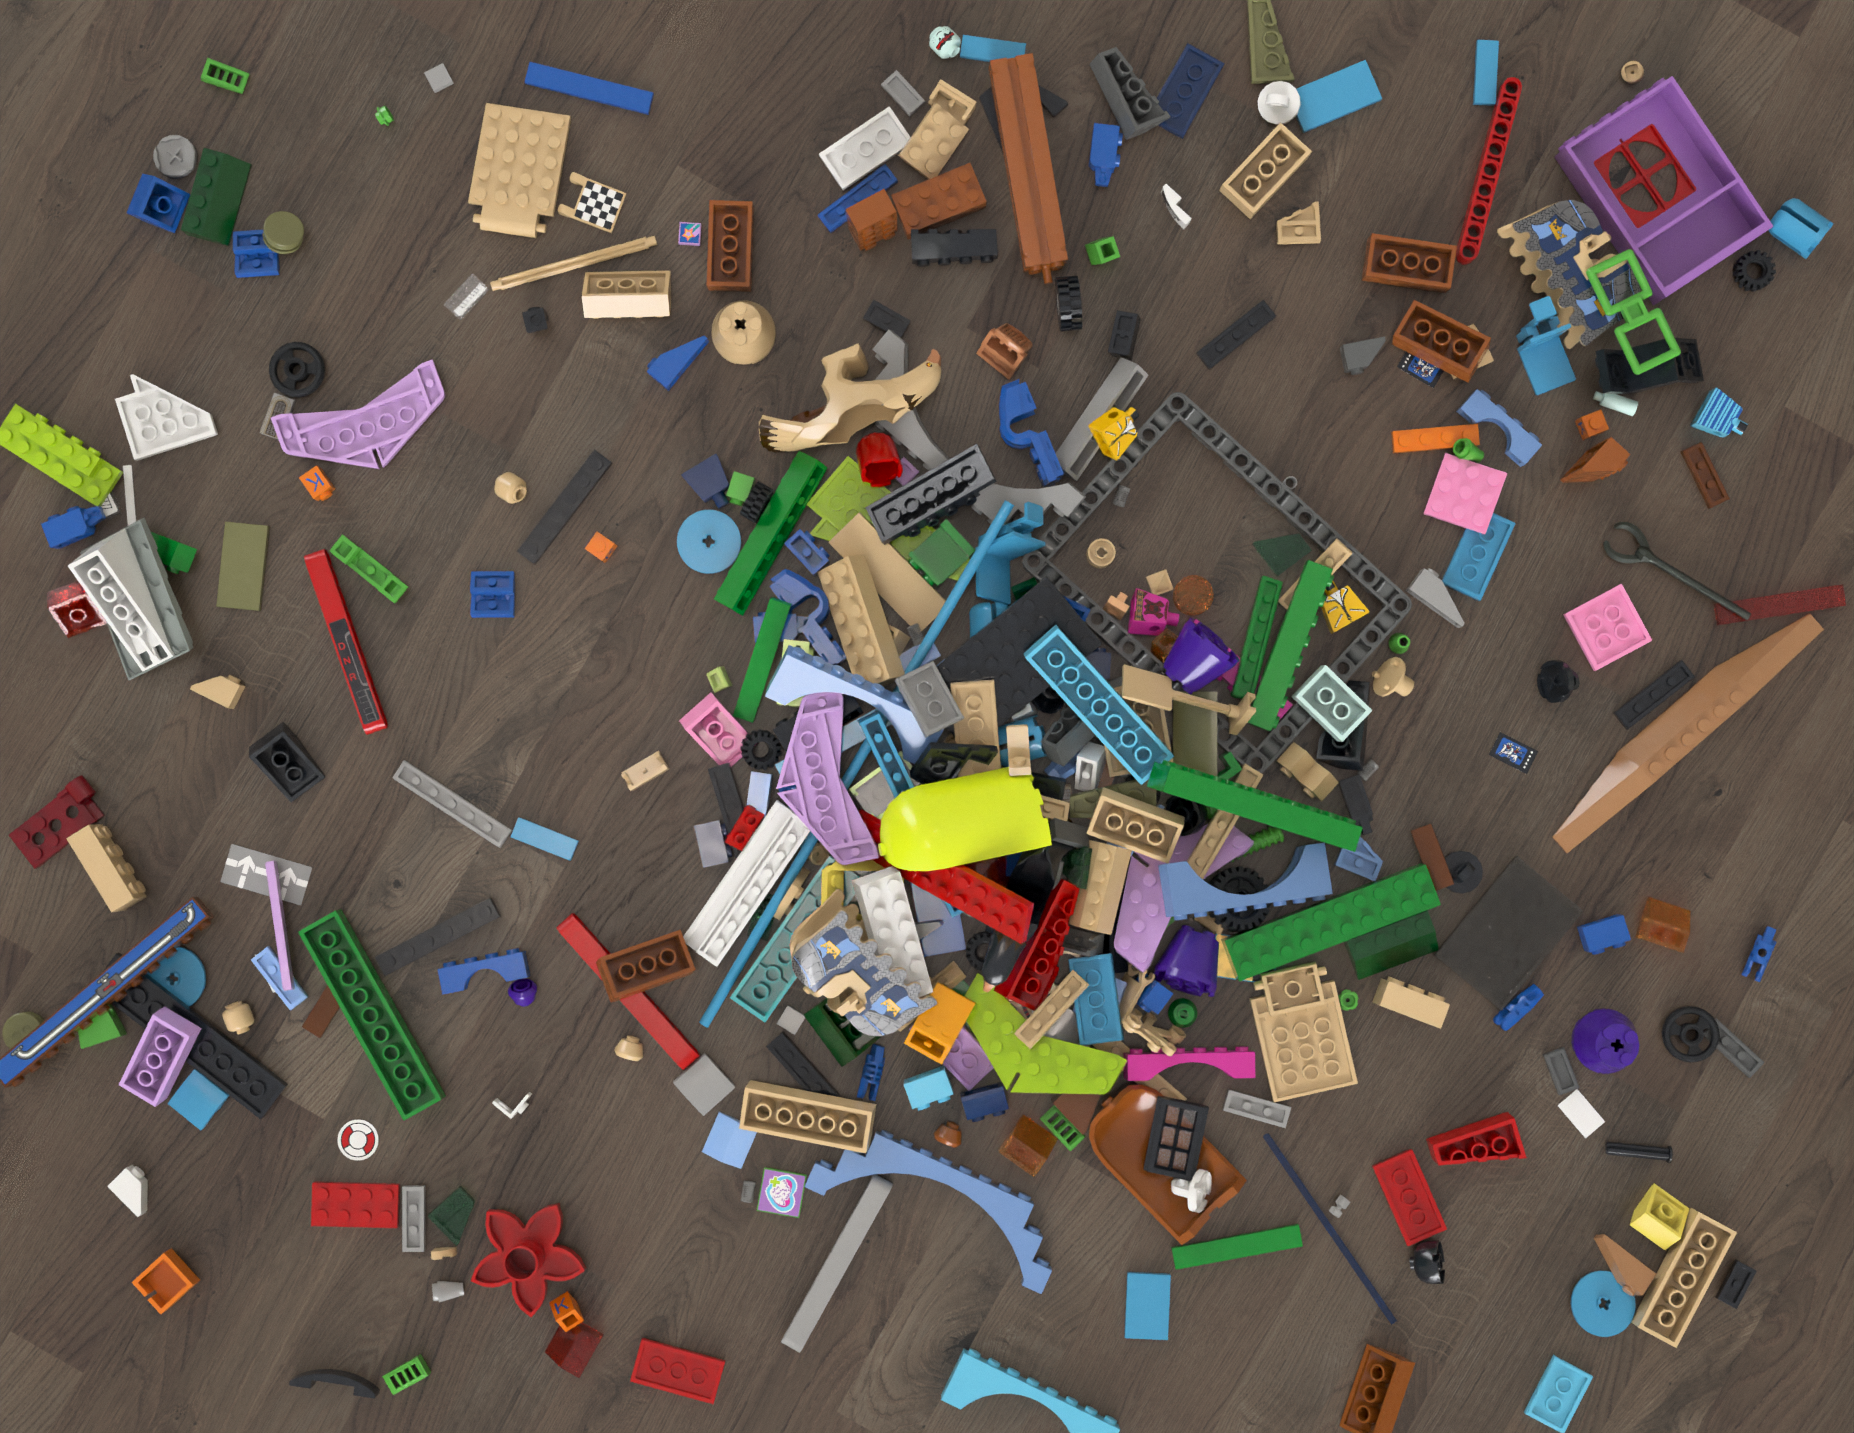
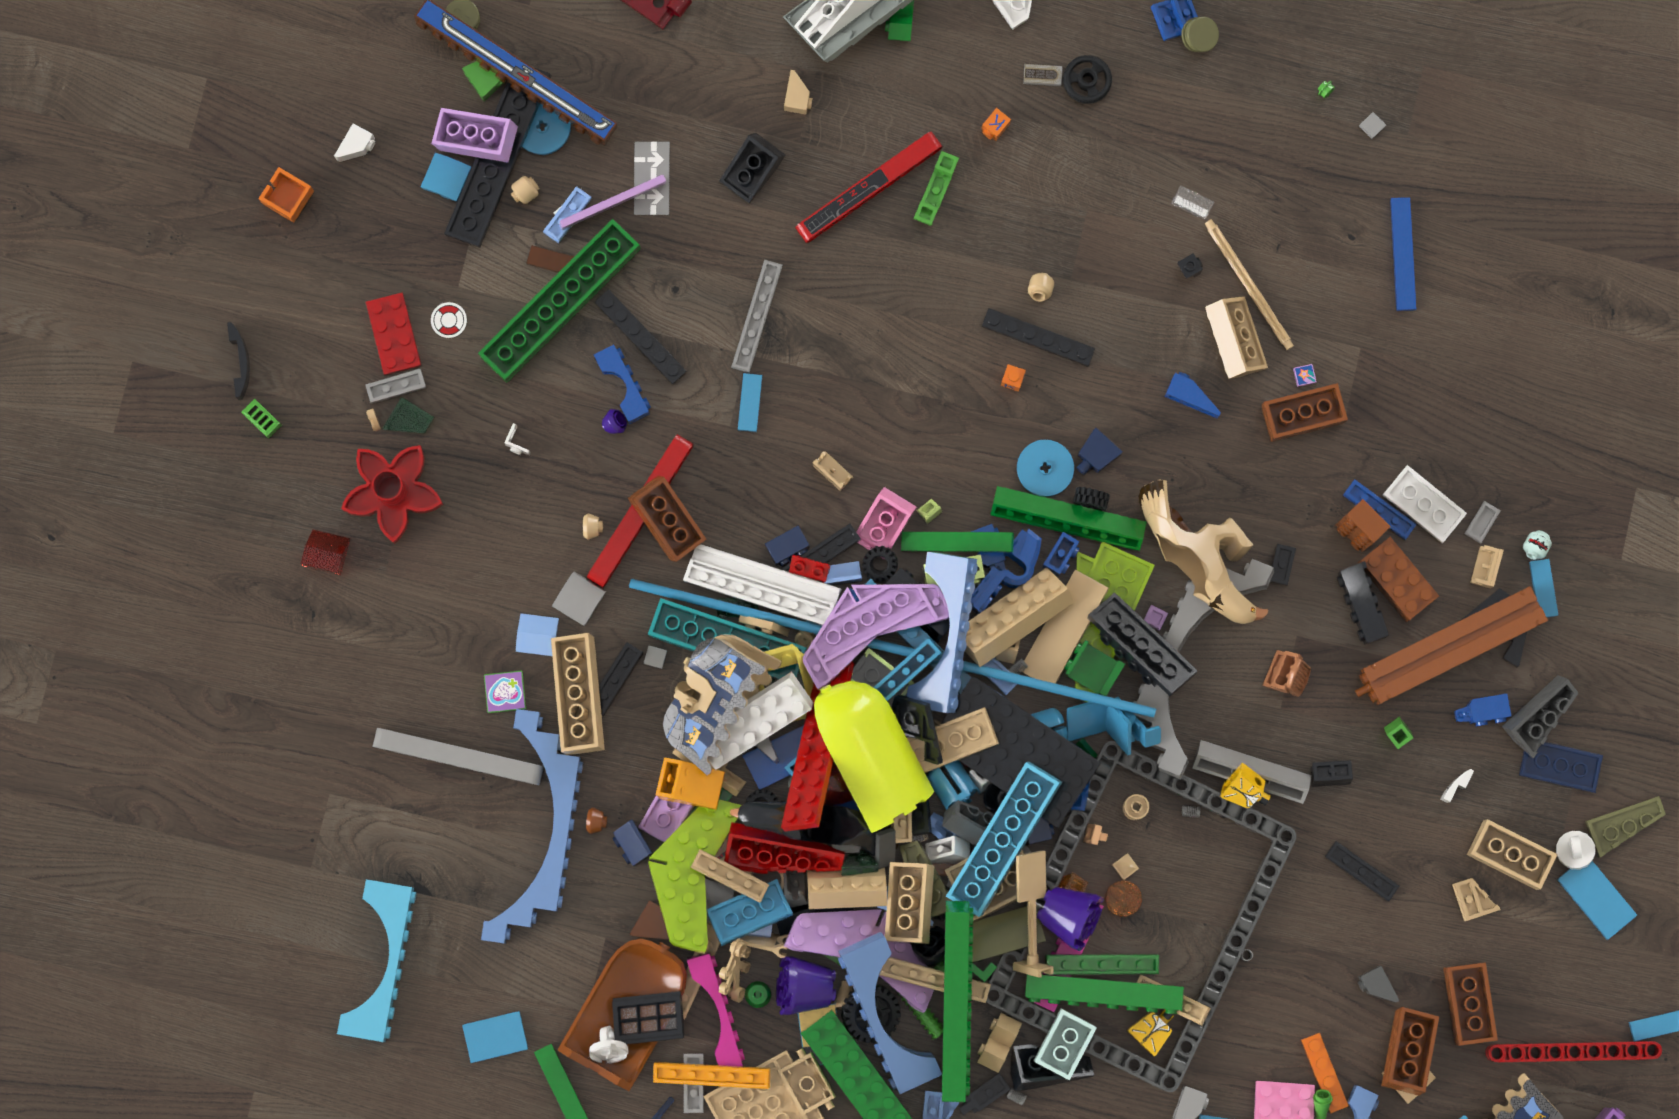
camera: 70 degrees right, 5 degrees down
(107, 867) = (620, 45): tan brick -> none
(242, 566) = (907, 83): olive tile -> none
(379, 426) = (1061, 162): lavender wing -> none
(447, 1290) = (342, 431): light grey cone -> none
(492, 594) = (945, 298): blue slope -> none
(518, 169) = (1315, 214): tan plate -> none
(566, 1311) = (353, 537): orange brick -> none
(596, 205) = (1305, 289): flag -> none
(677, 1371) = (328, 647): red plate -> none
(740, 488) = (1099, 480): bright green brick -> none
(744, 345) = (1224, 452): tan cone -> none
(748, 1198) = (491, 661): light grey piece -> none
(838, 1033) = (655, 701): dark green slope -> none
(872, 1072) = (630, 739): blue hinge -> none
(878, 459) = (1158, 591): red cylinder -> none
(928, 1087) = (631, 790): medium azure brick -> none
(929, 699) = (966, 692): light grey tile -> none
(933, 142) = (1447, 560): tan plate -> none
(1014, 406) = (1240, 695): blue piece -> none
(1018, 750) = (944, 782): tan bracket -> none
(1028, 1145) = (605, 892): clear orange slope -> none
(1068, 303) = (1343, 716): black wheel -> none
(1069, 1145) = (616, 929): bright green slope -> none
(1149, 614) = (1095, 865): dark pink torso -> none
(1153, 996) = (765, 962): blue brick -> none
(1255, 1087) = (711, 1075): none -> light orange tile
(1282, 551) = (1185, 966): clear green wing -> none
(1392, 678) = (1102, 1094): tan piece -> none
(1394, 643) = (1130, 1092): bright green cone -> none
(1420, 369) = (1380, 1042): black sticker -> none

